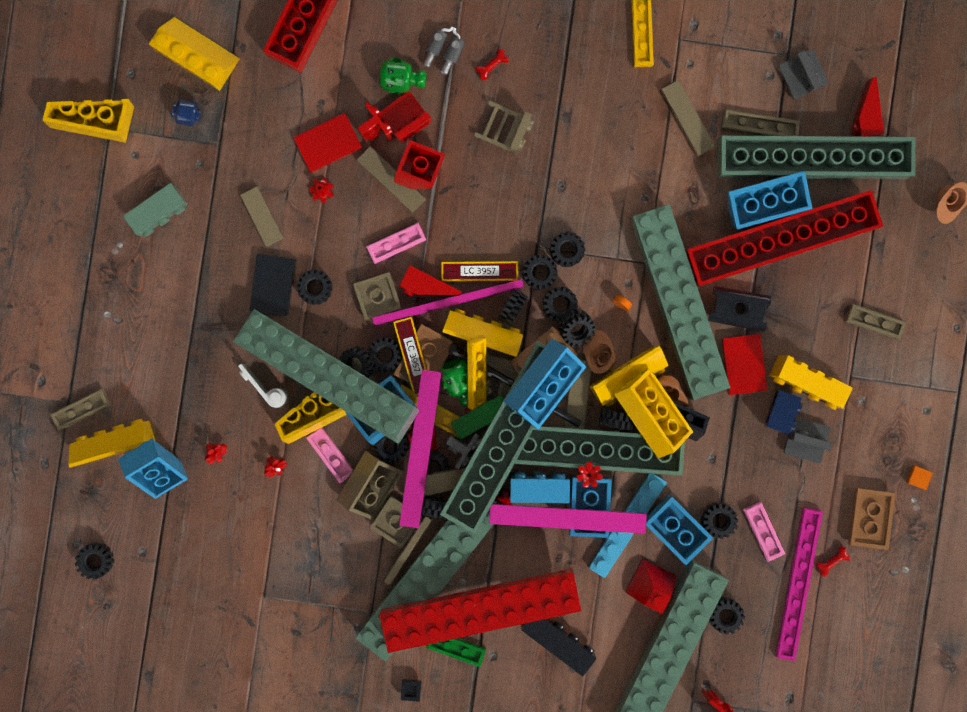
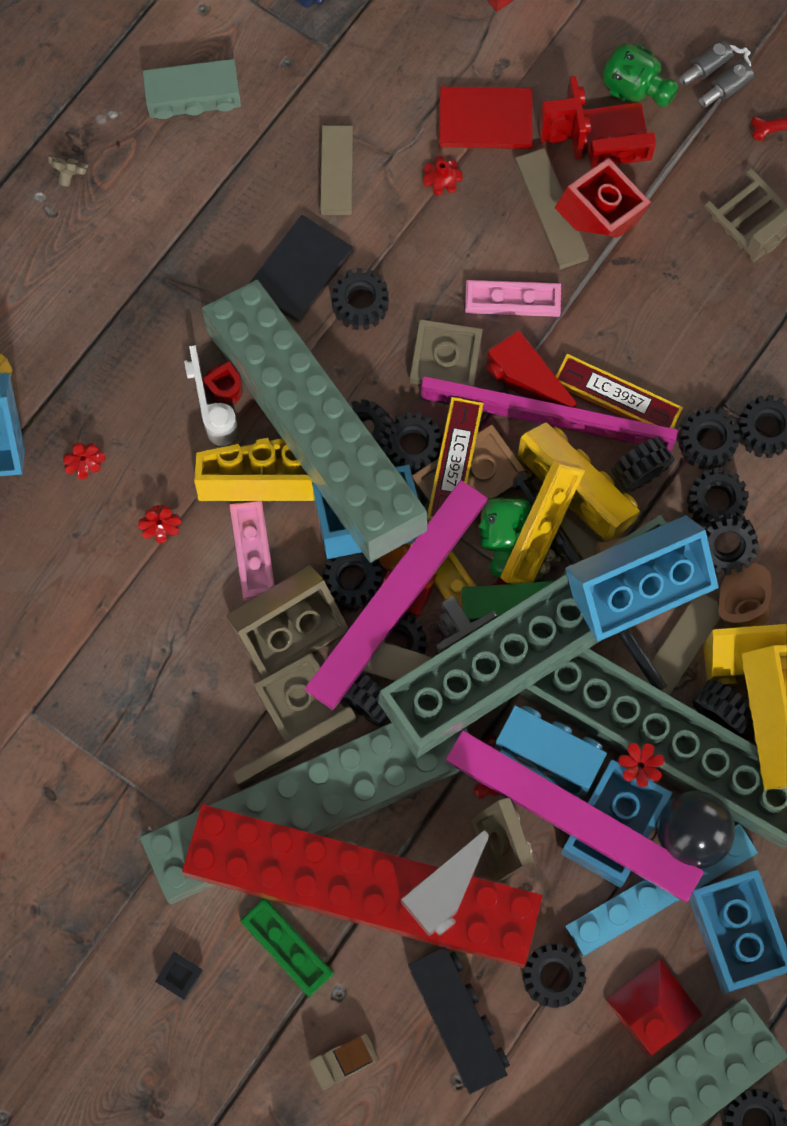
camera: 25 degrees right, 15 degrees down
(113, 292) = (67, 169): none -> dark tan plant
(267, 374) = (224, 384): none -> red plate
(512, 690) = (343, 1061): none -> leg
(523, 604) = (440, 894): none -> light grey slope
(537, 545) = (506, 847): none -> dark tan plate
(591, 584) = (575, 970): none -> black tyre
(632, 493) = (696, 829): none -> black piece

